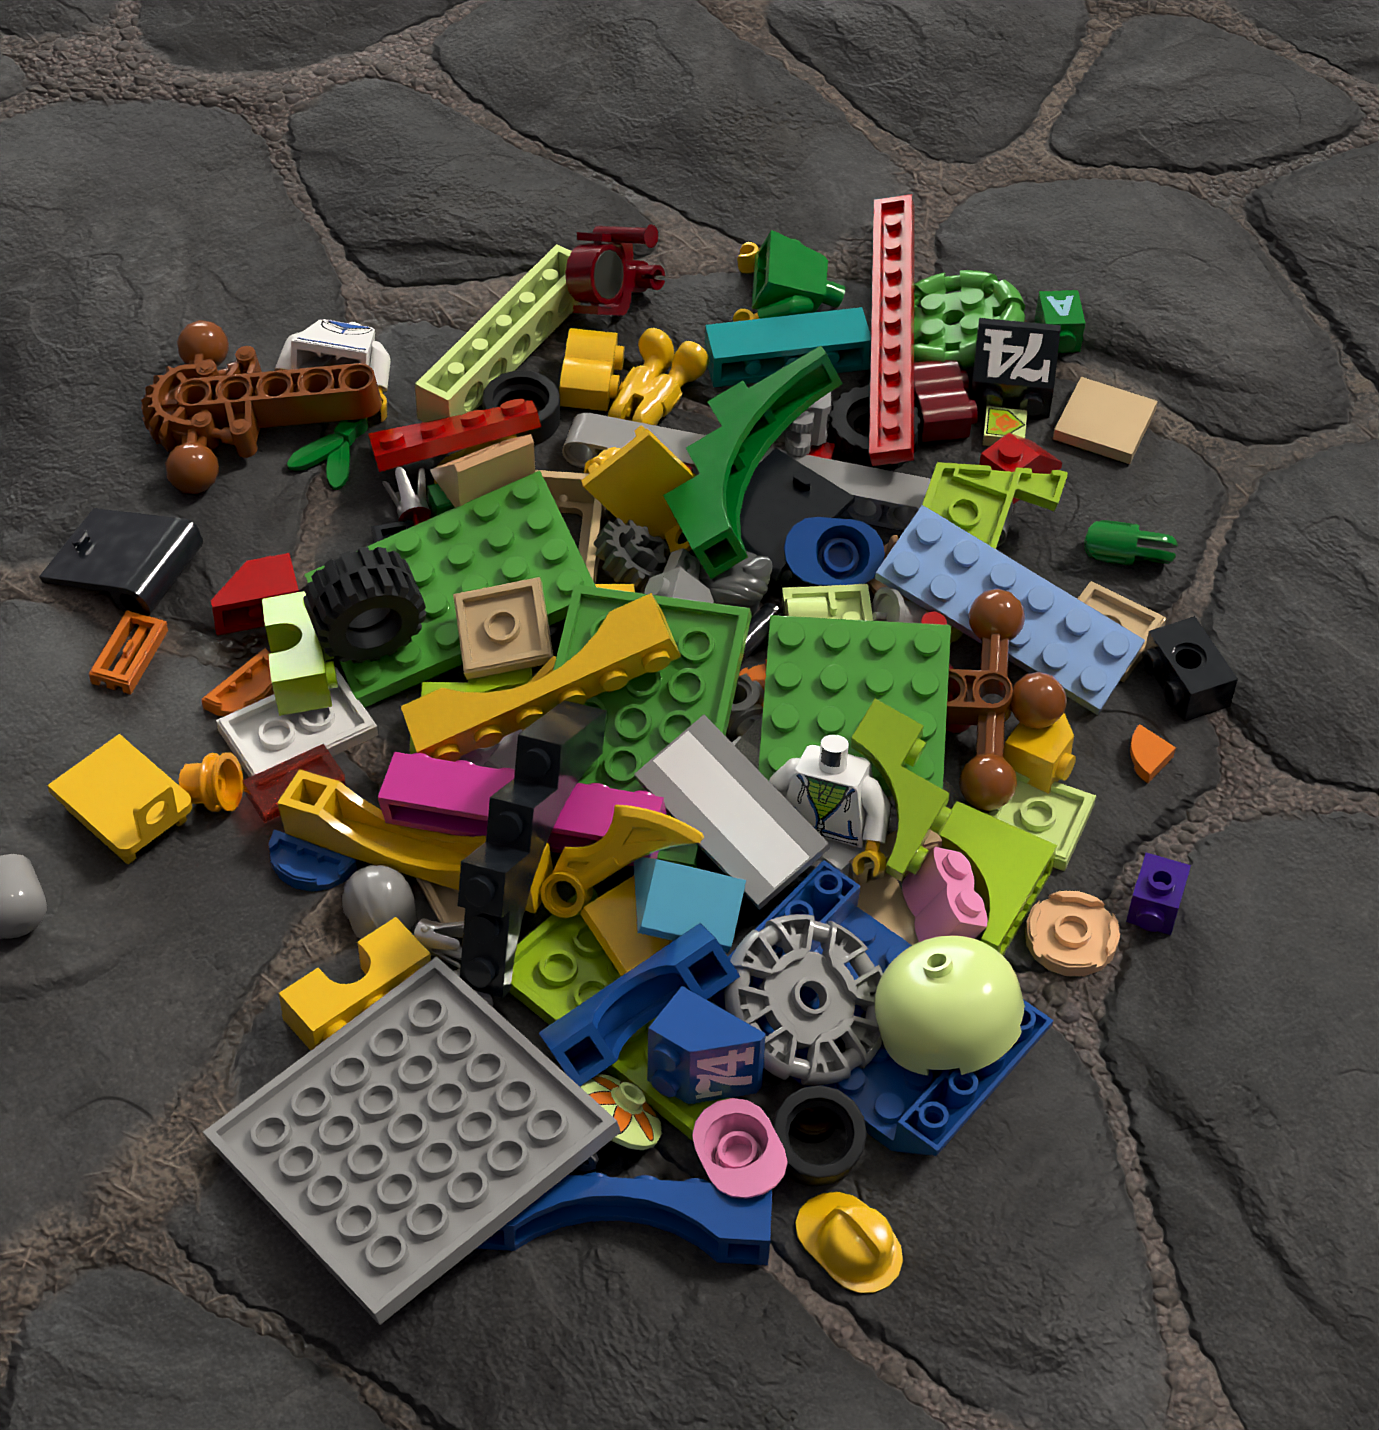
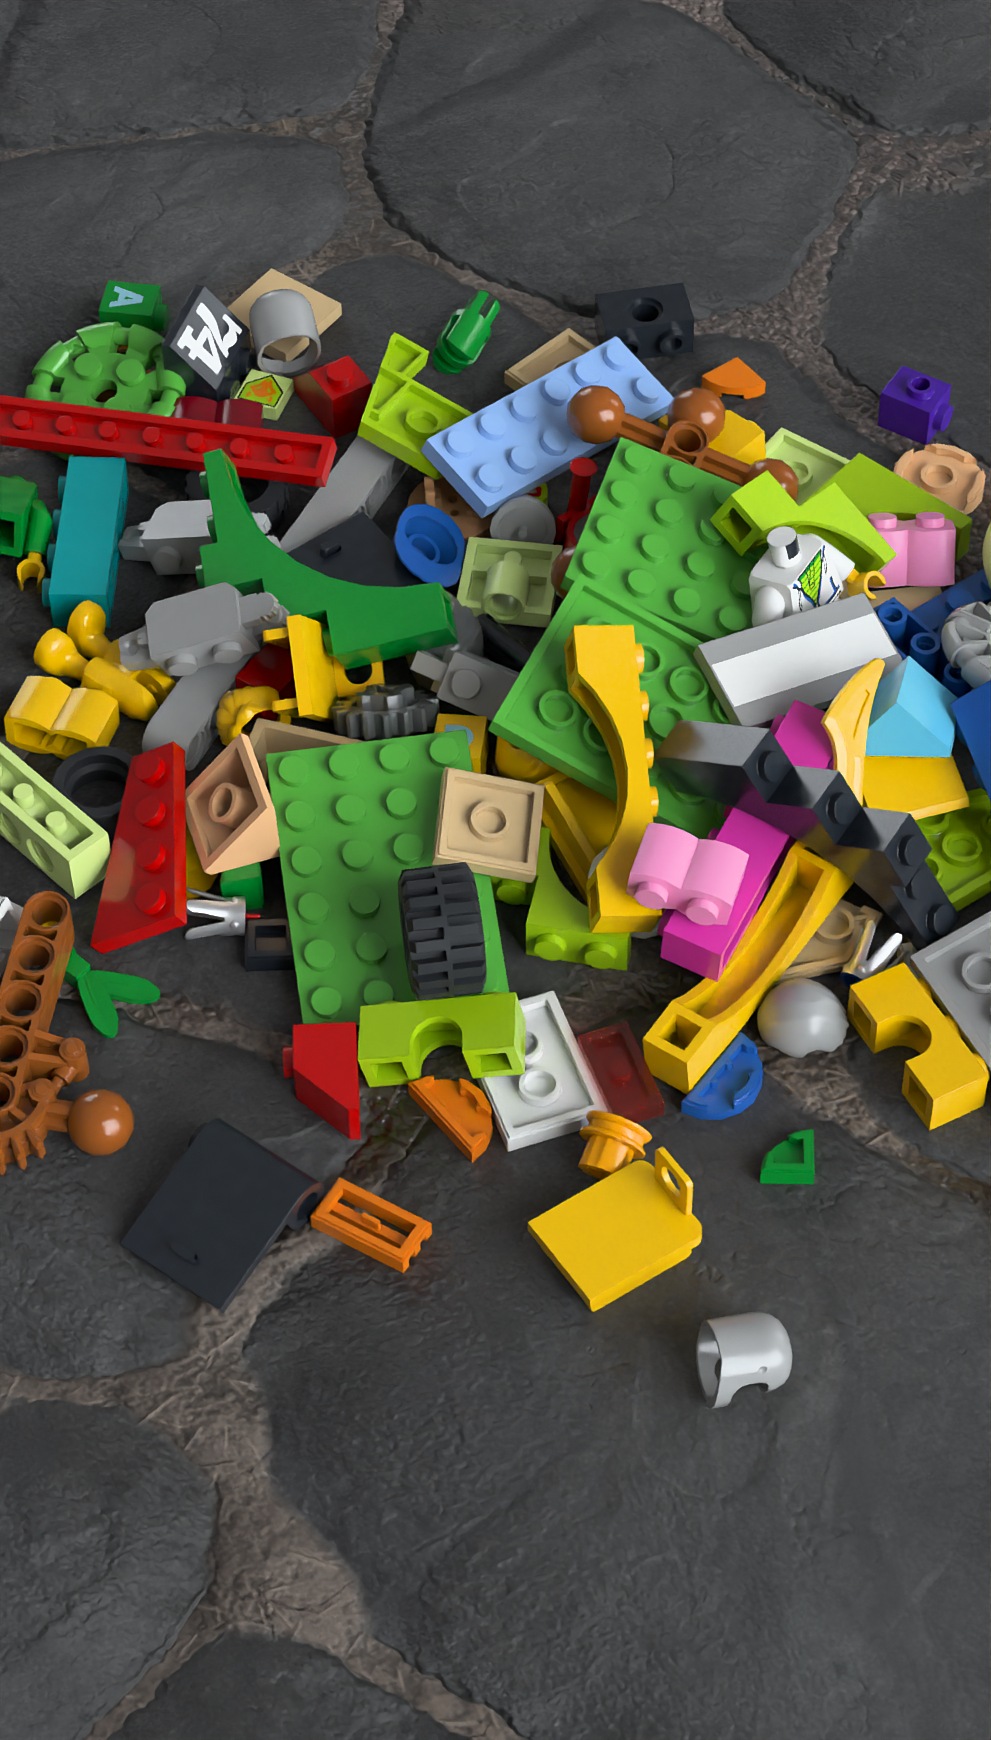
camera: 75 degrees left, 0 degrees up
(230, 918) = (790, 1160): none -> green tile
(434, 744) = (687, 874): none -> bright pink brick
(668, 409) = (201, 630): none -> light grey hinge
(1068, 408) = (279, 316): none -> light grey helmet

